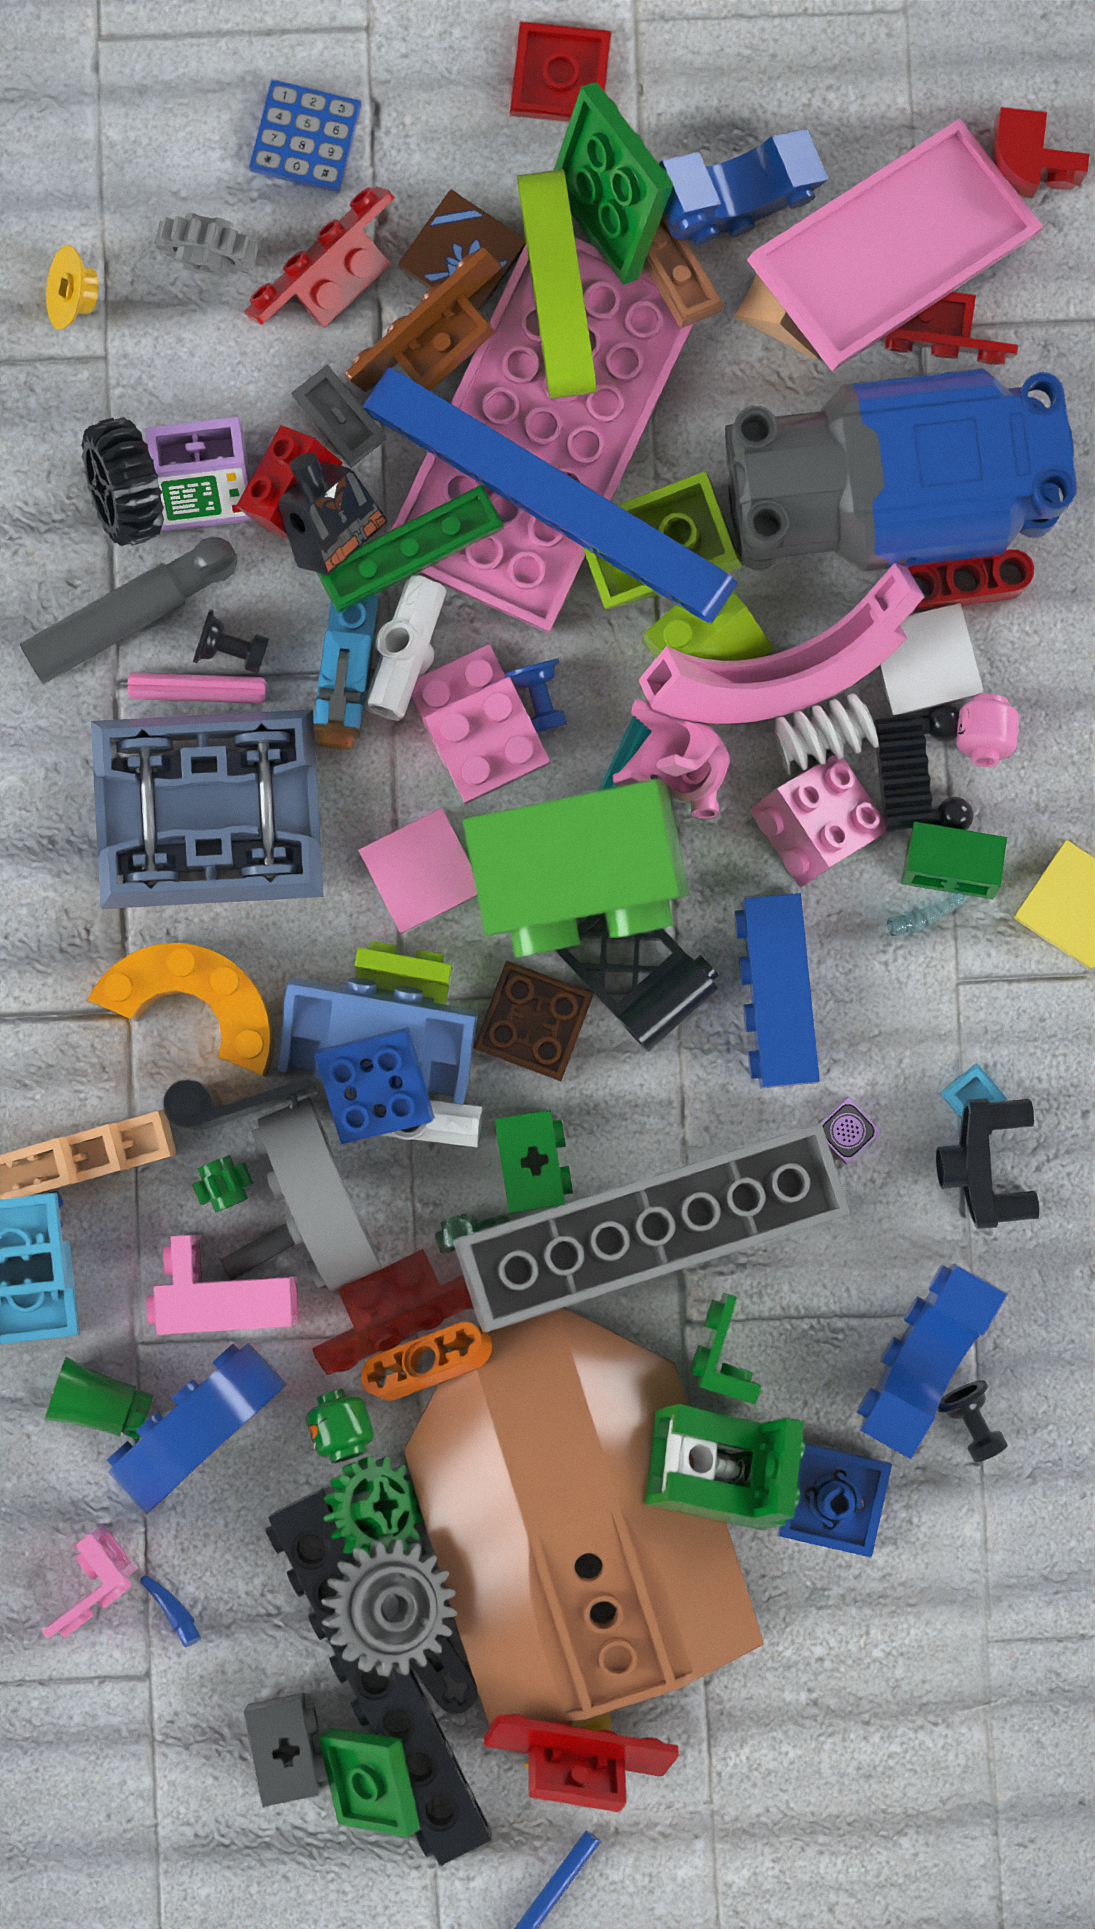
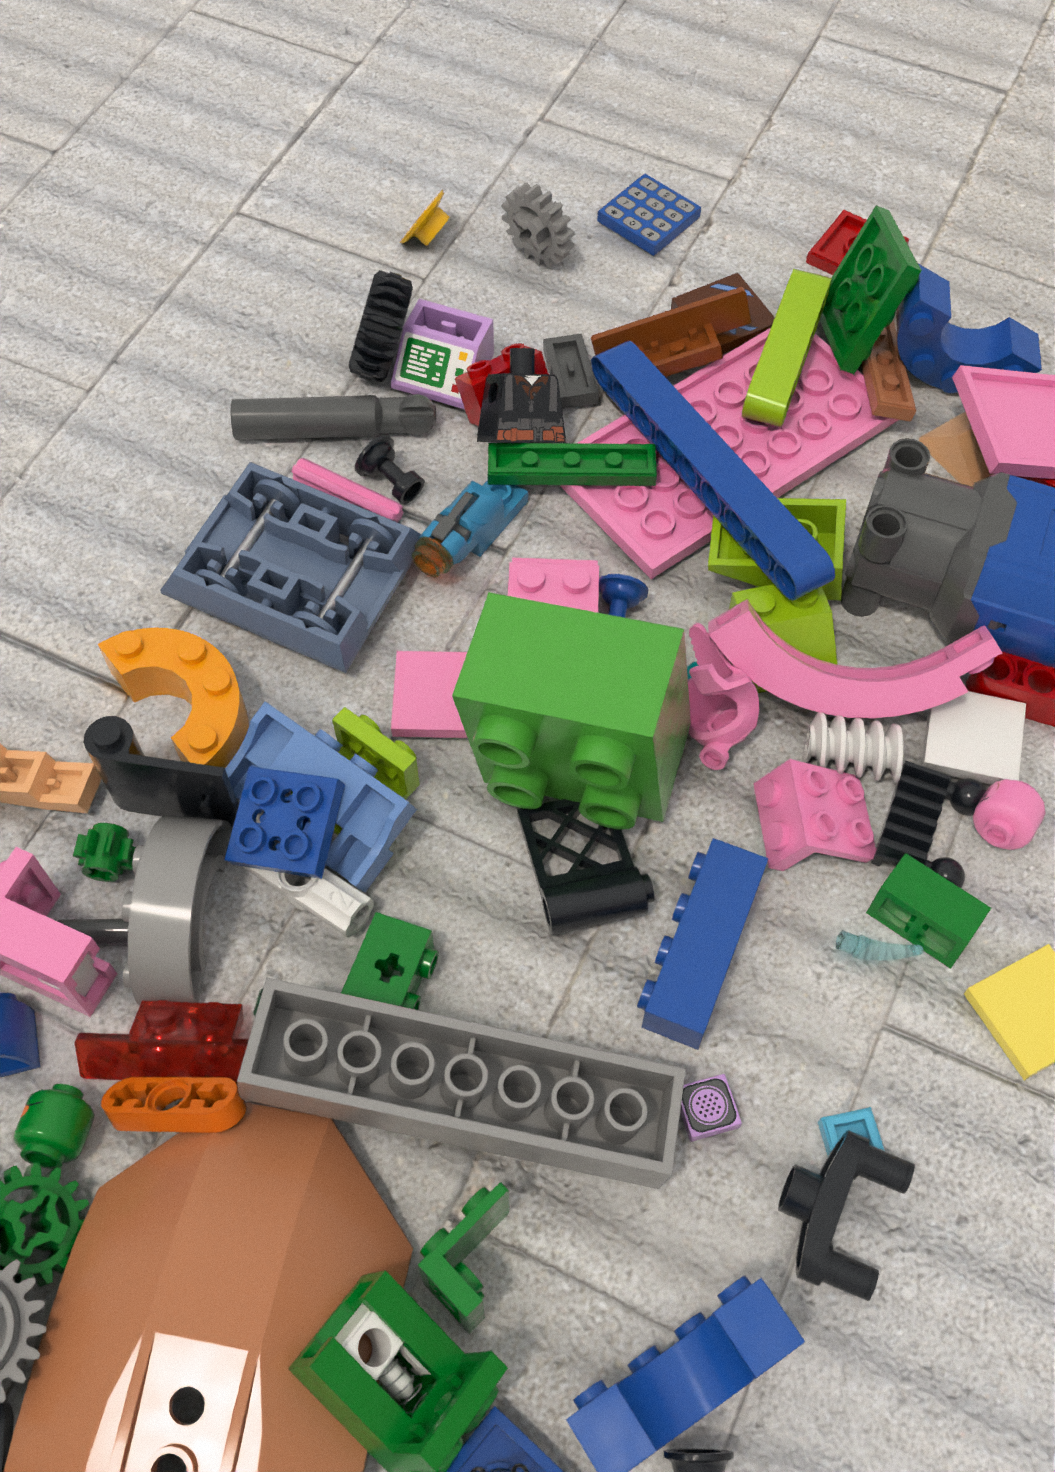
camera: 30 degrees right, 25 degrees down
(332, 269) = (620, 288): bracket -> none
(405, 648) = (525, 528): white piece -> none
(533, 1021) = (464, 862): reddish brown tile -> none

